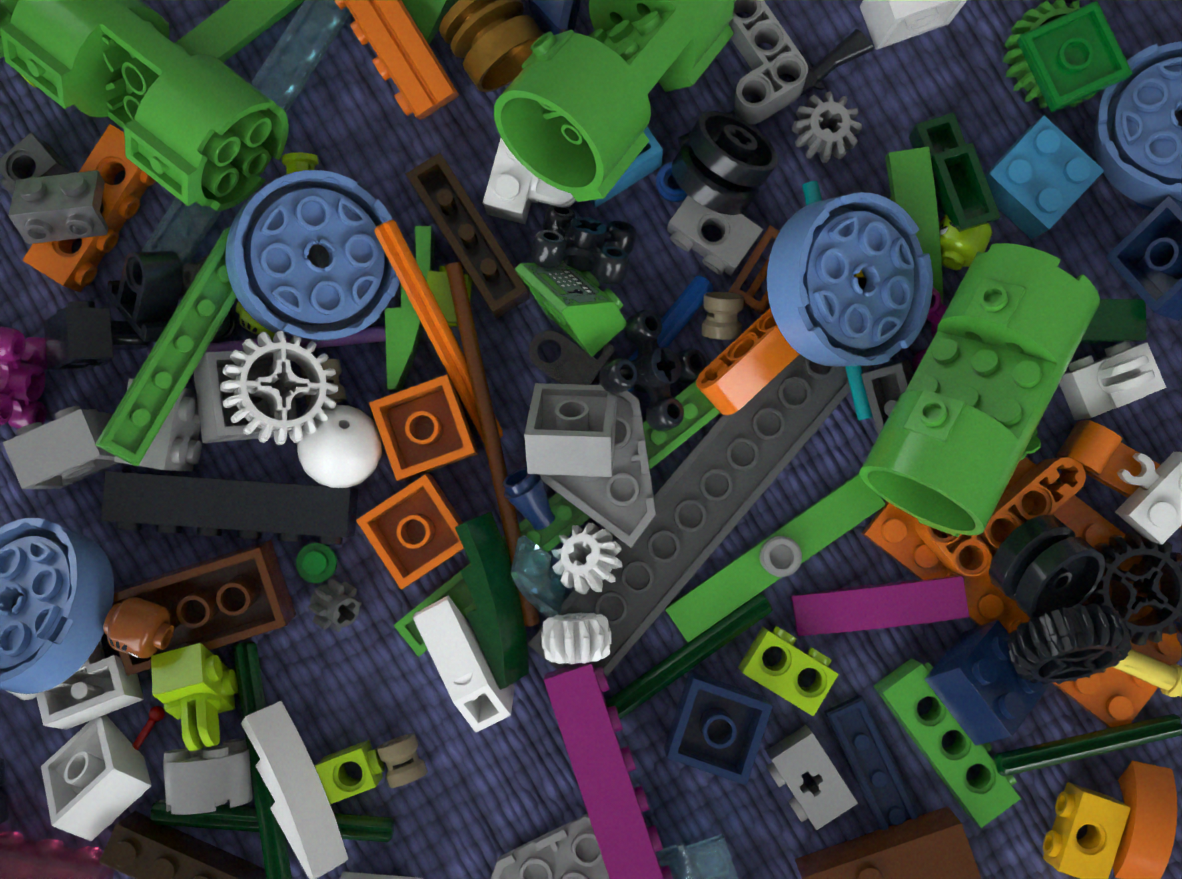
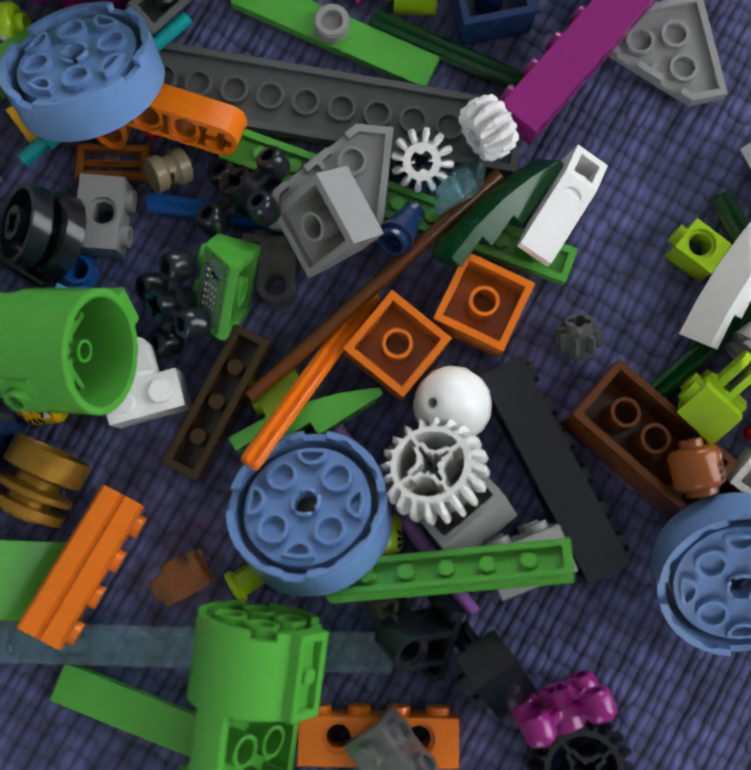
camera: 125 degrees left, 5 degrees down
(60, 450) = (601, 633): light grey brick -> none
(316, 562) = (555, 374): green plate -> none
(334, 117) = (181, 578): none -> clear orange brick
(402, 760) = (666, 212): dark tan wheel -> none

